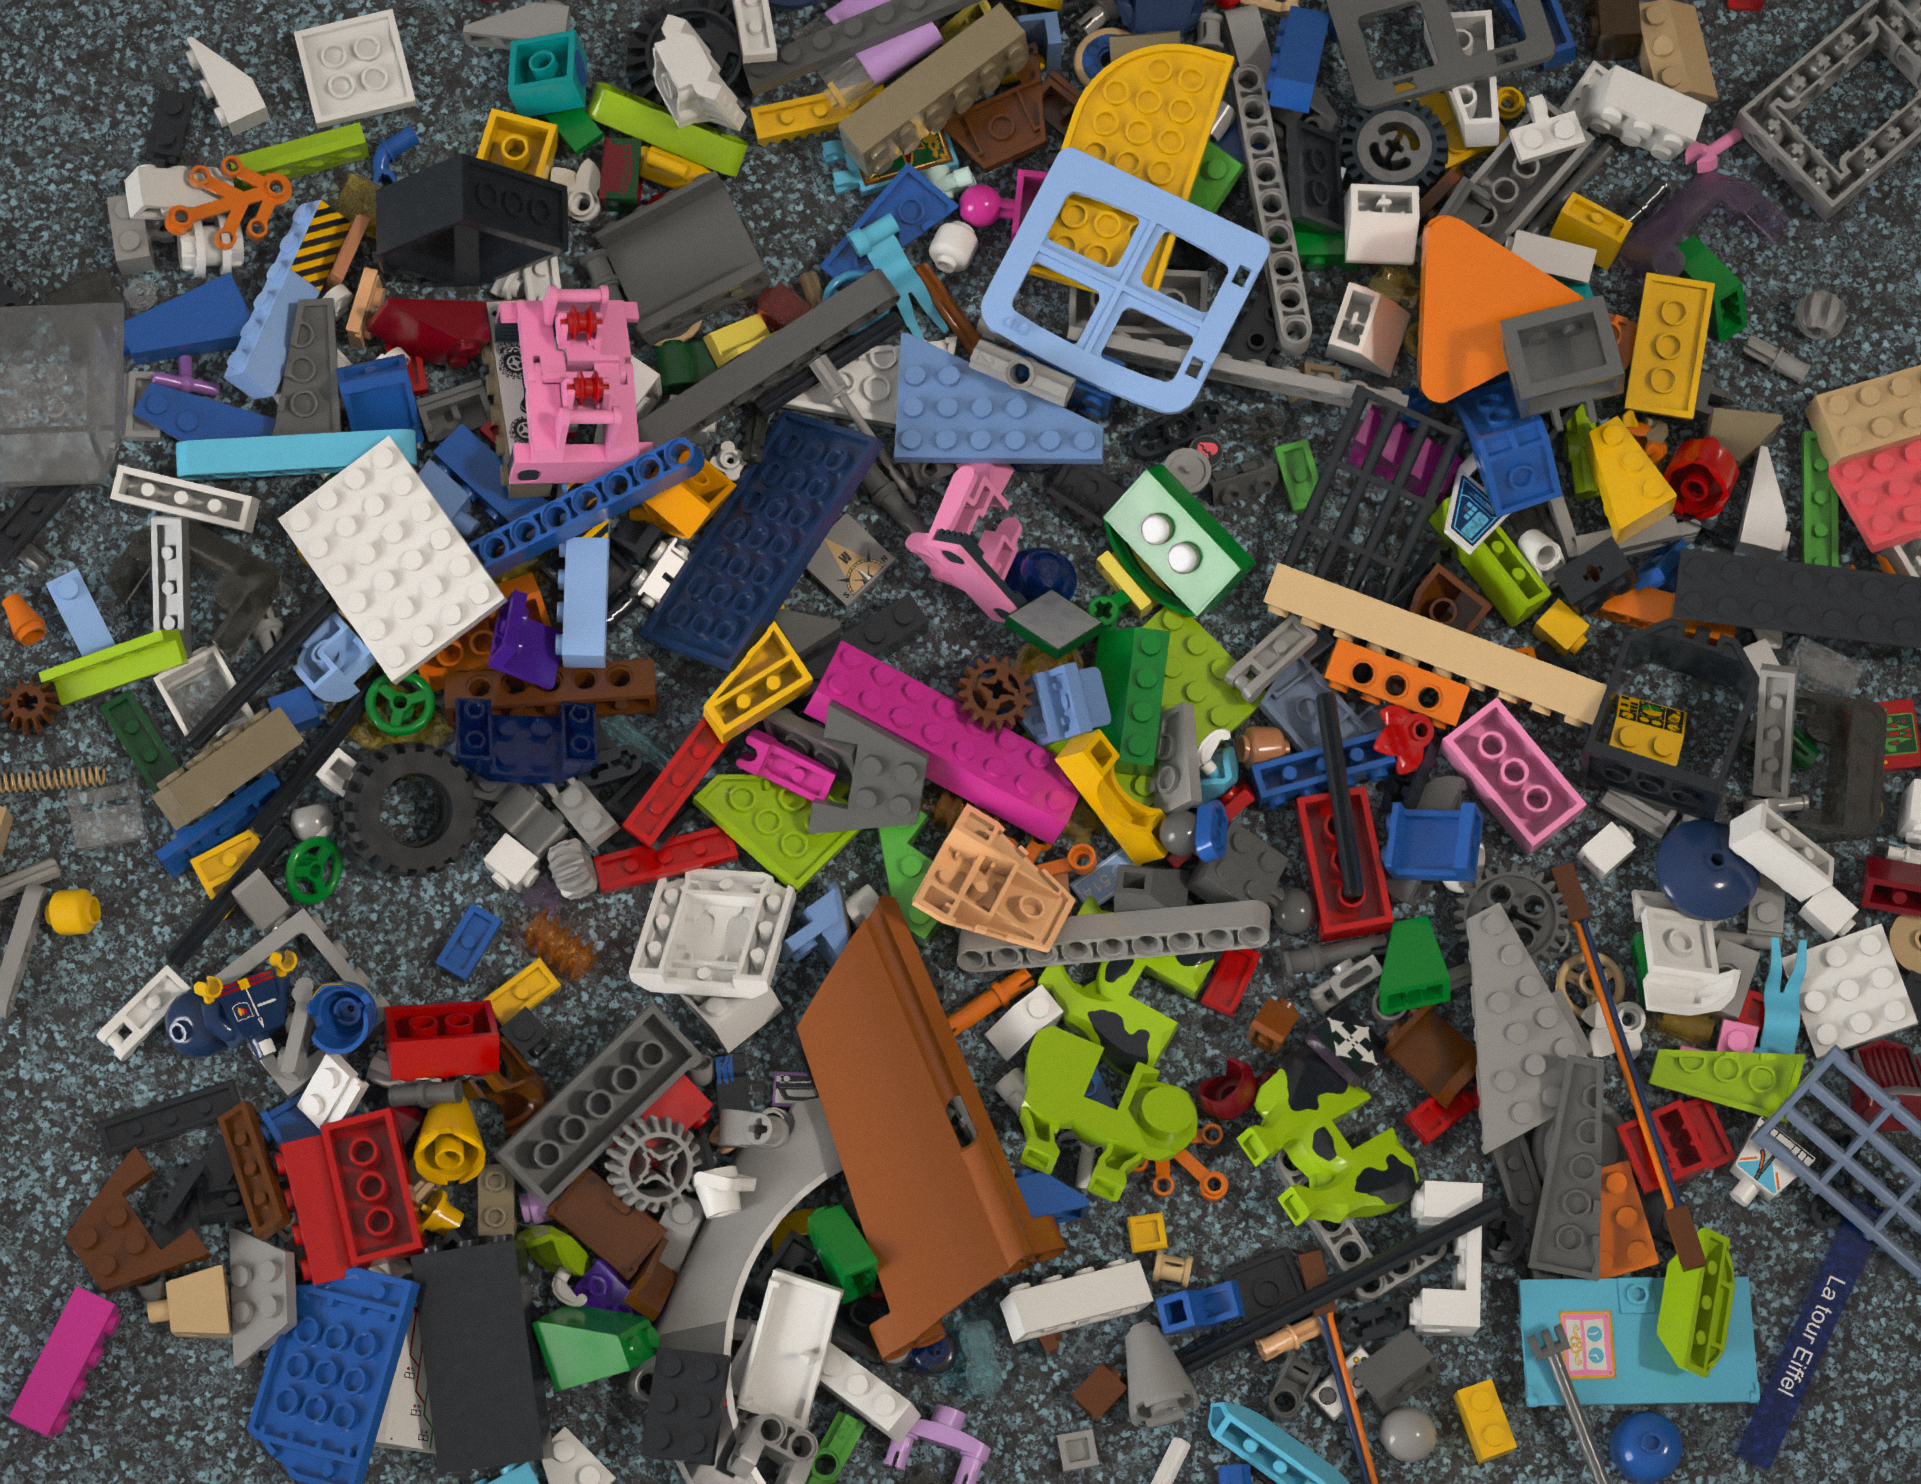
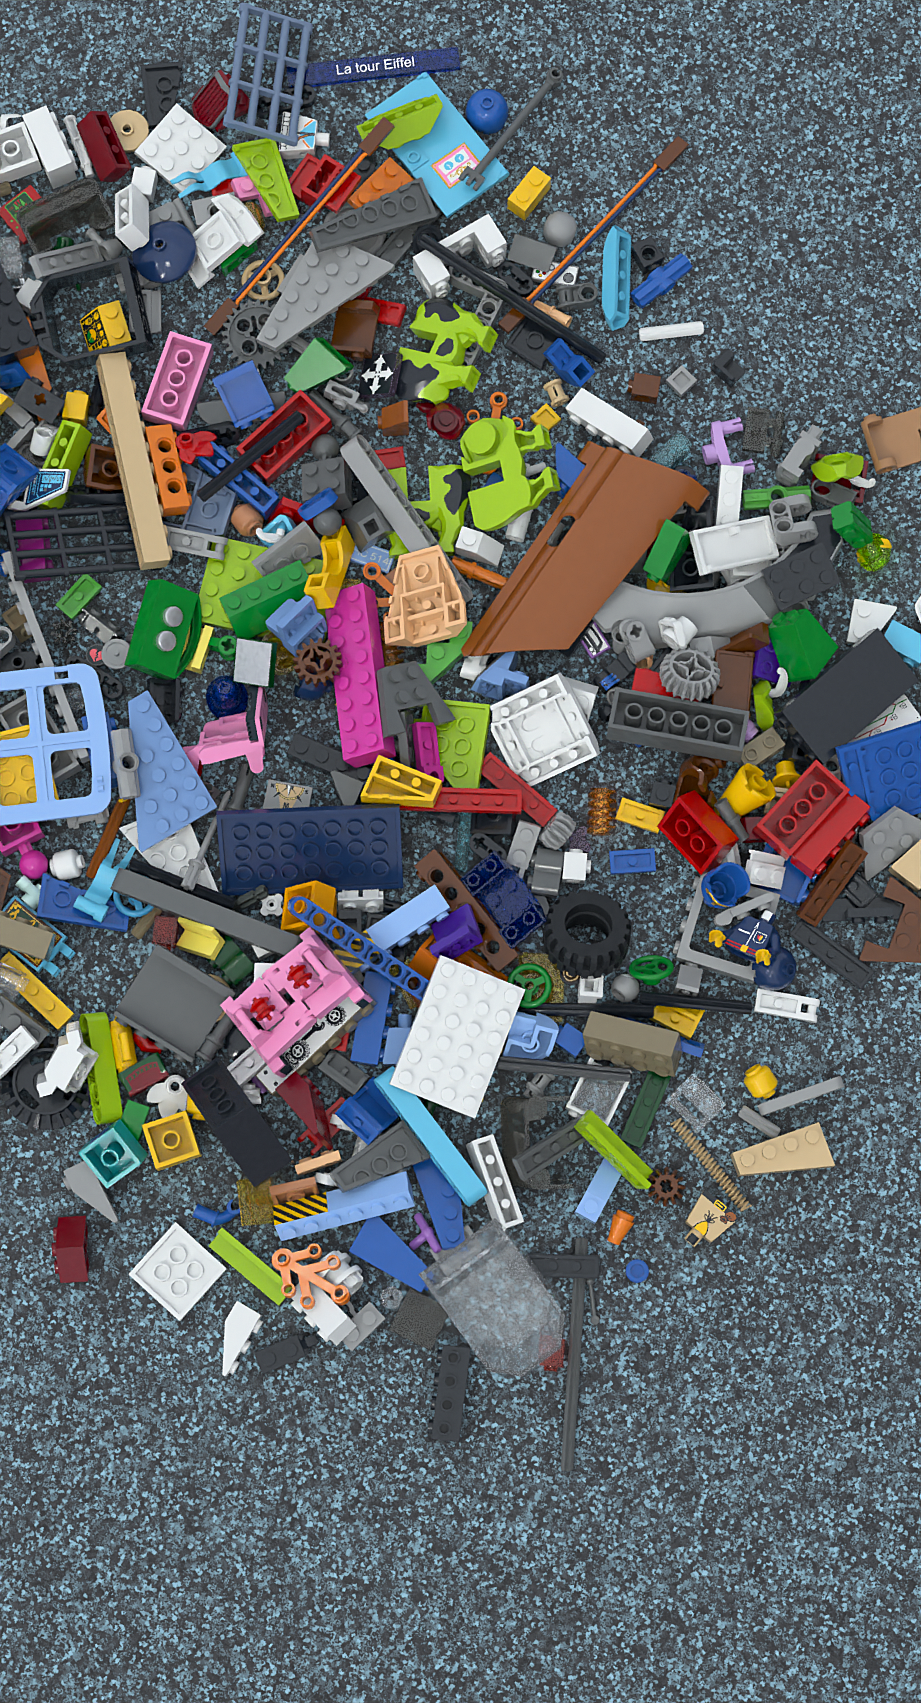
camera: 120 degrees left, 5 degrees up
(1155, 1378) = (618, 364): light grey cone -> none
(1599, 1035) = (287, 258): white plate -> none
(1607, 850) = (185, 312): white brick -> none

